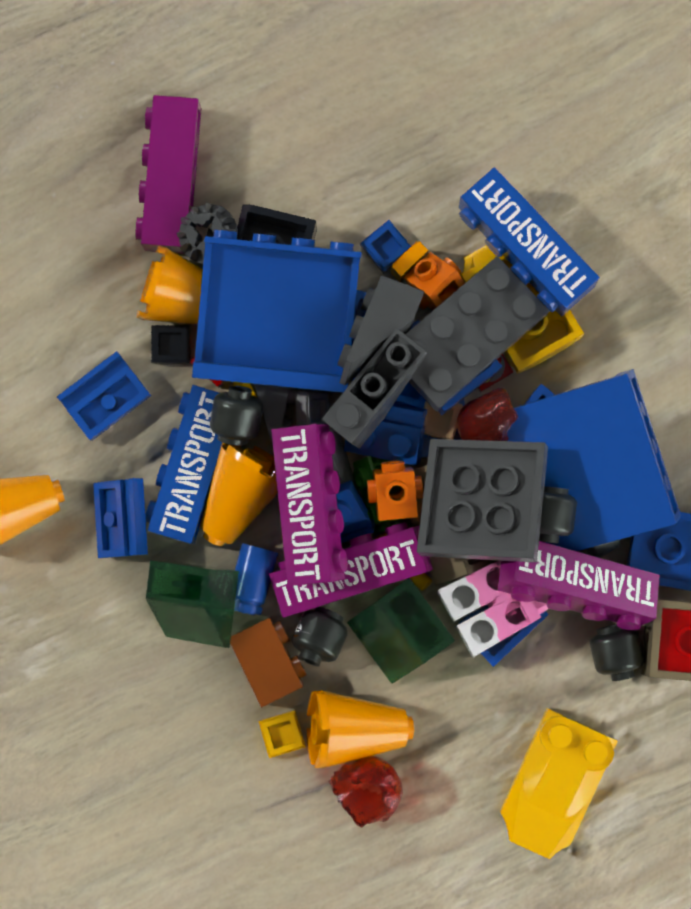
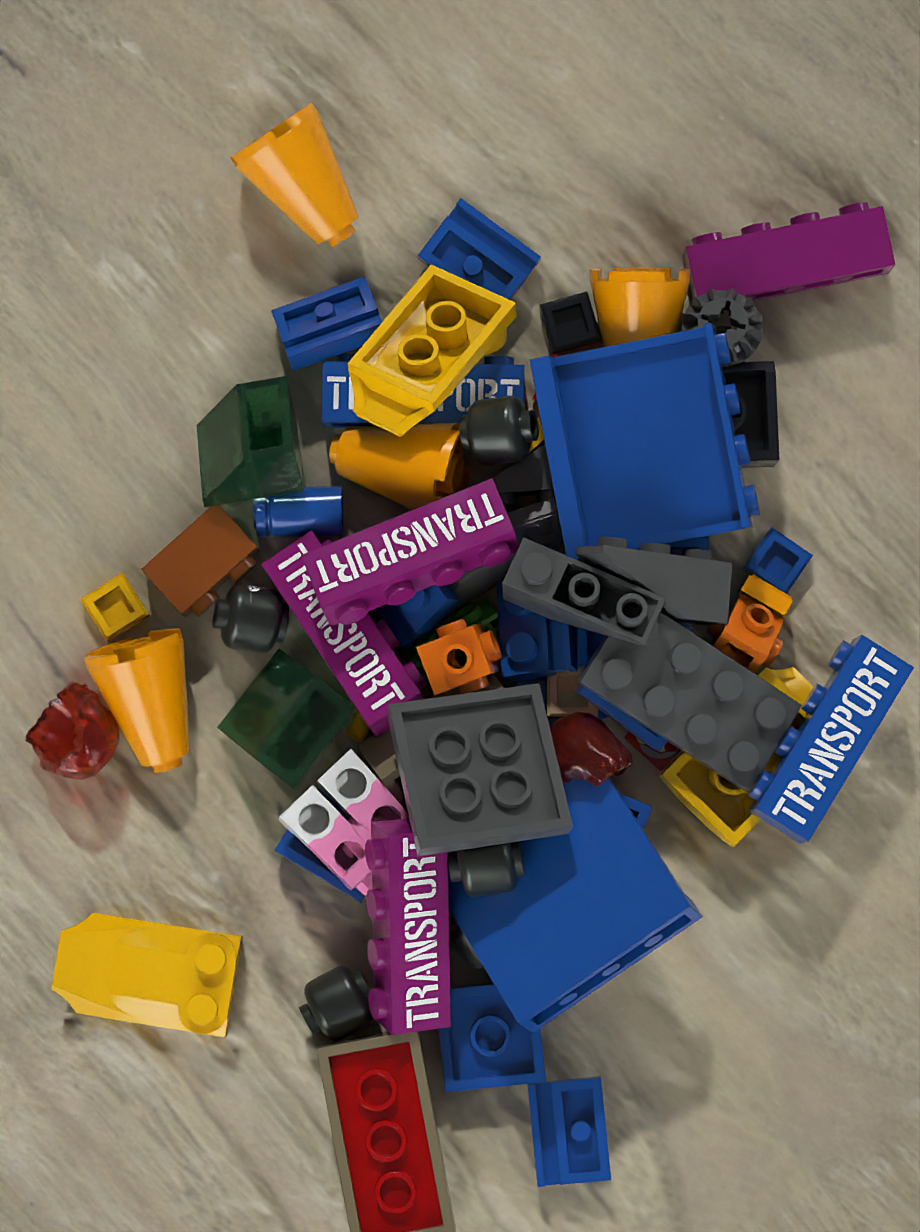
camera: 75 degrees right, 0 degrees up
(161, 452) = (426, 349): none -> yellow slope

